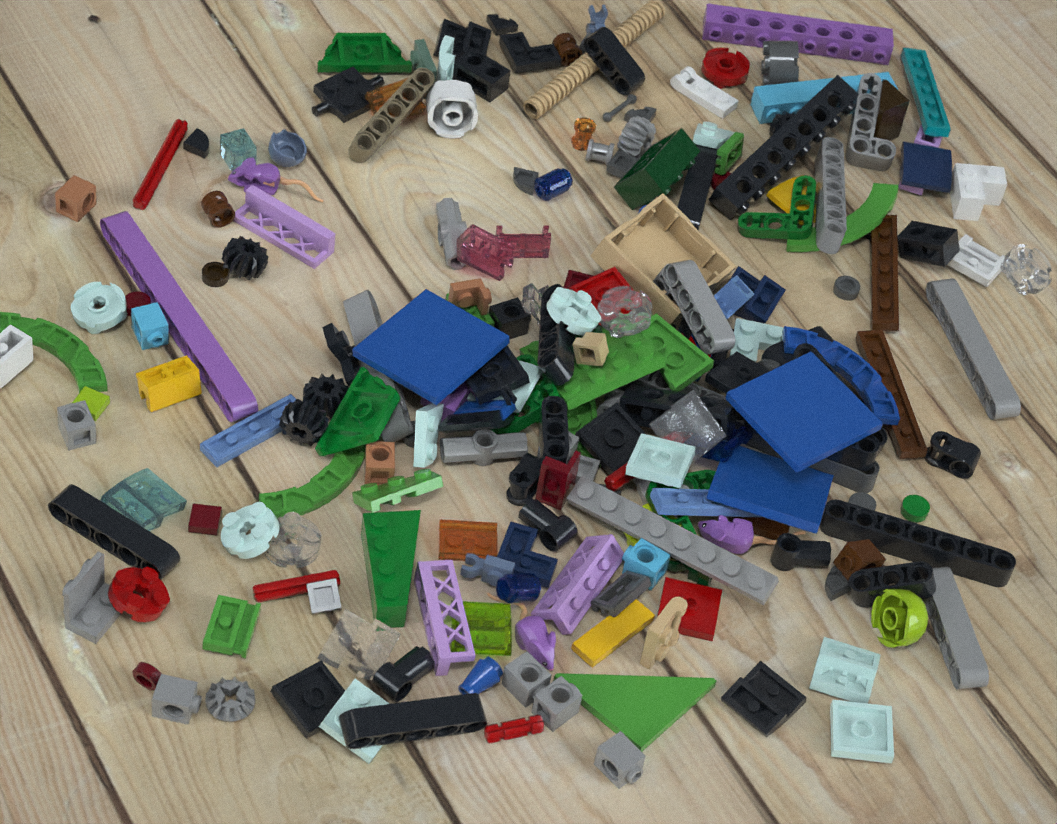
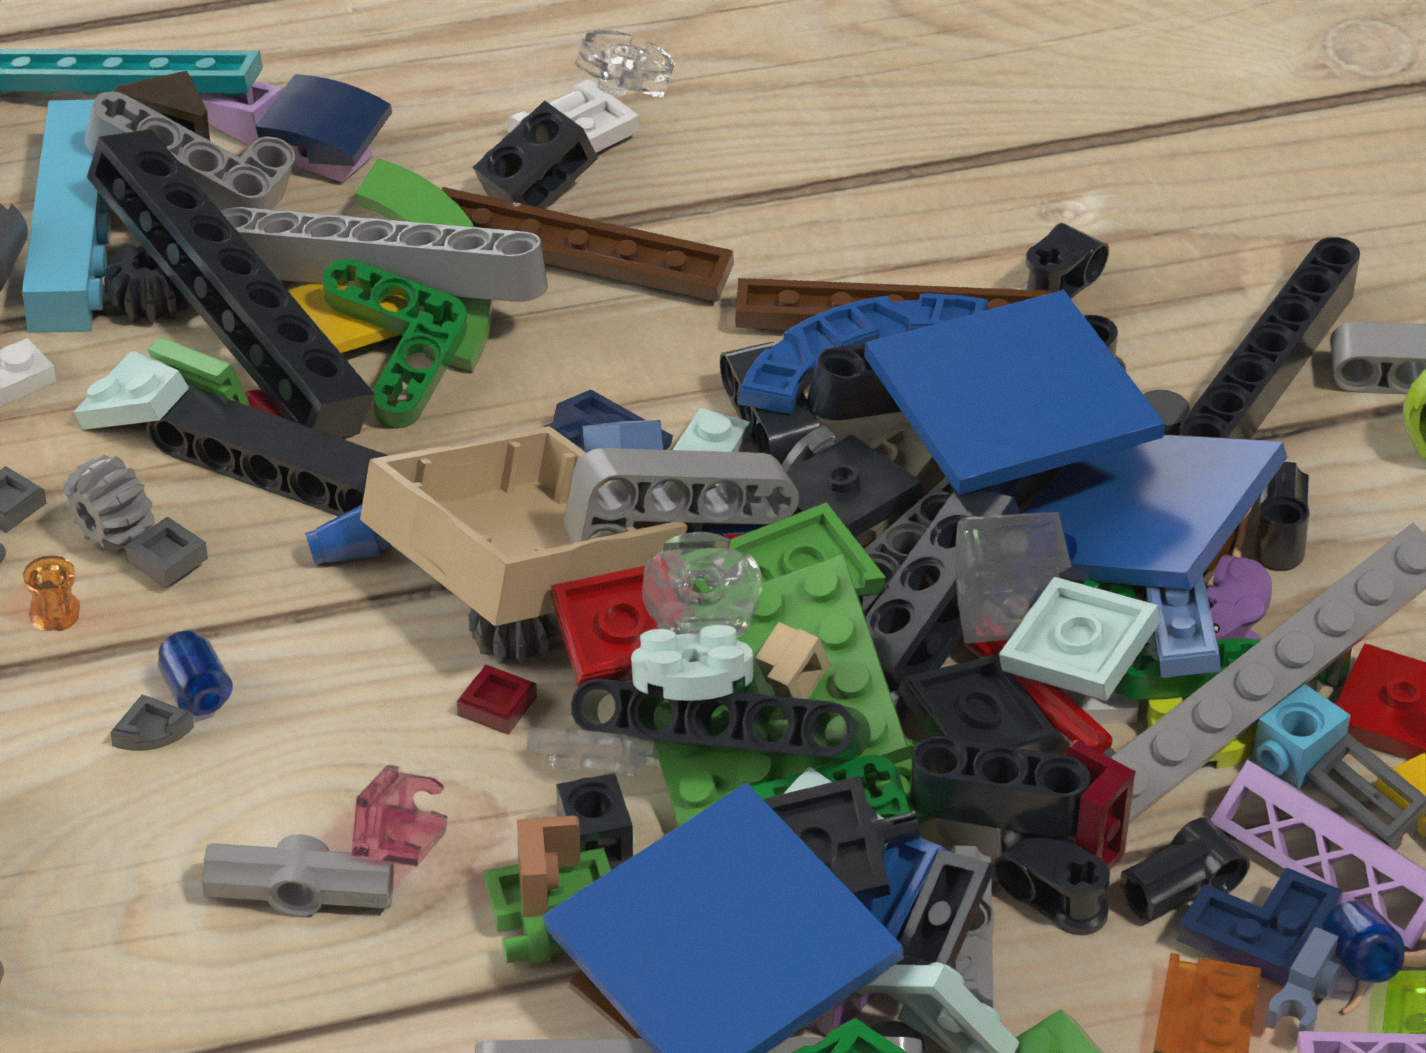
camera: 70 degrees left, 5 degrees down
(528, 244) = (356, 756): clear pink hinge -> none
(594, 150) = (115, 580): light grey bush -> none
(657, 169) = (232, 483): dark green brick -> none
(836, 584) = (1344, 489): dark grey tile -> none
(846, 288) = (598, 309): dark grey tile -> none
(858, 556) = (1318, 435): reddish brown brick -> none
(880, 578) = (1381, 421): black beam -> none
(915, 508) = (1173, 347): green tile -> none
(973, 349) = (799, 180): light grey beam -> none
(975, 187) = (398, 71): white brick -> none

